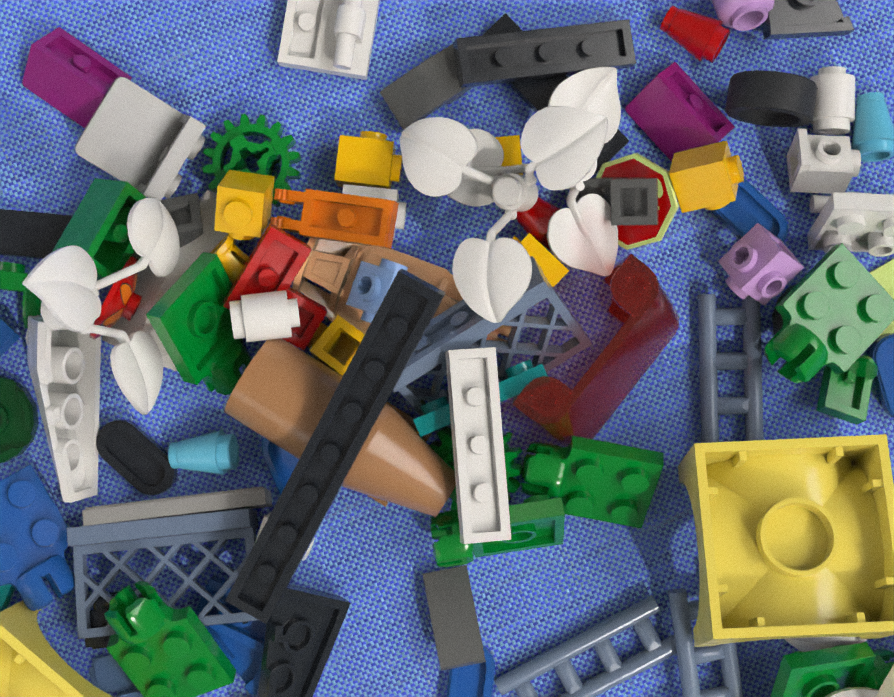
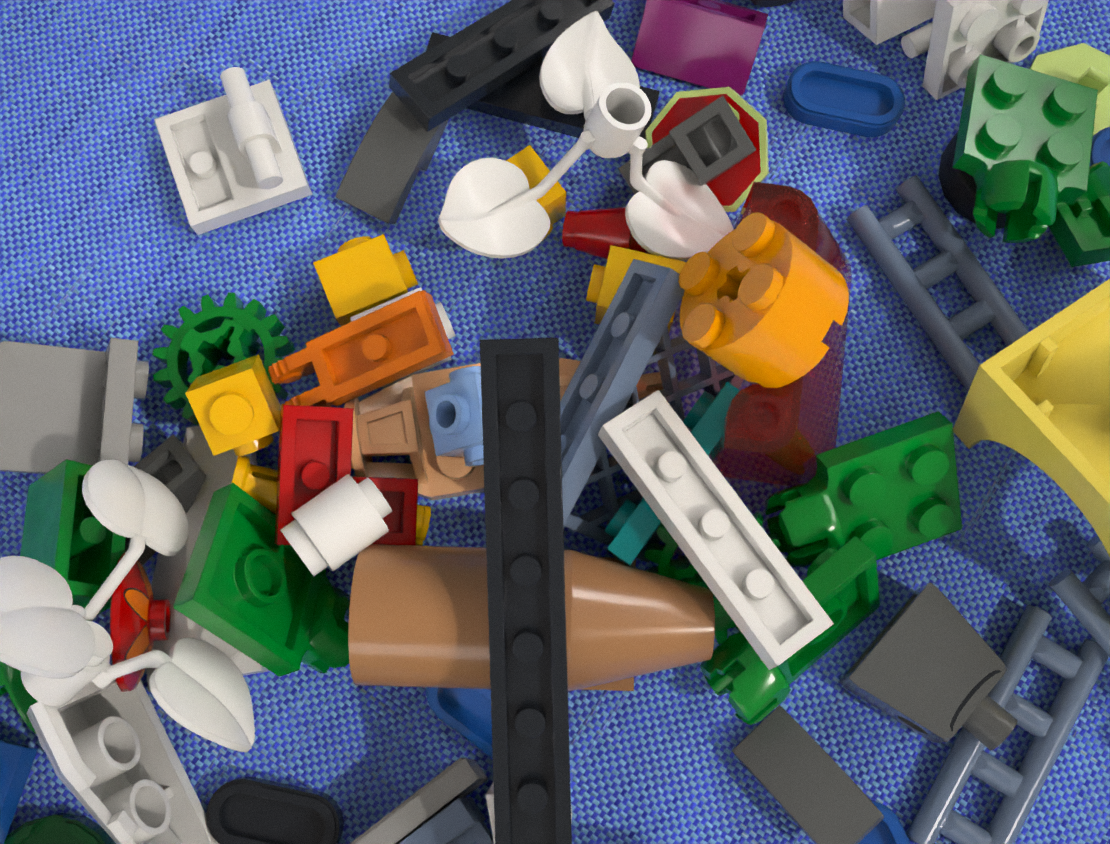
camera: 25 degrees left, 10 degrees down
(206, 453) = (362, 759): medium azure cone -> none
(337, 345) = (455, 513): yellow brick -> none
(562, 151) = (607, 288): white plant -> none
(565, 599) = (933, 673): none -> dark grey torso
(581, 334) = (761, 303): none -> light orange brick
(706, 177) = (778, 71): yellow brick -> none
(759, 265) = (901, 134): lavender brick -> none

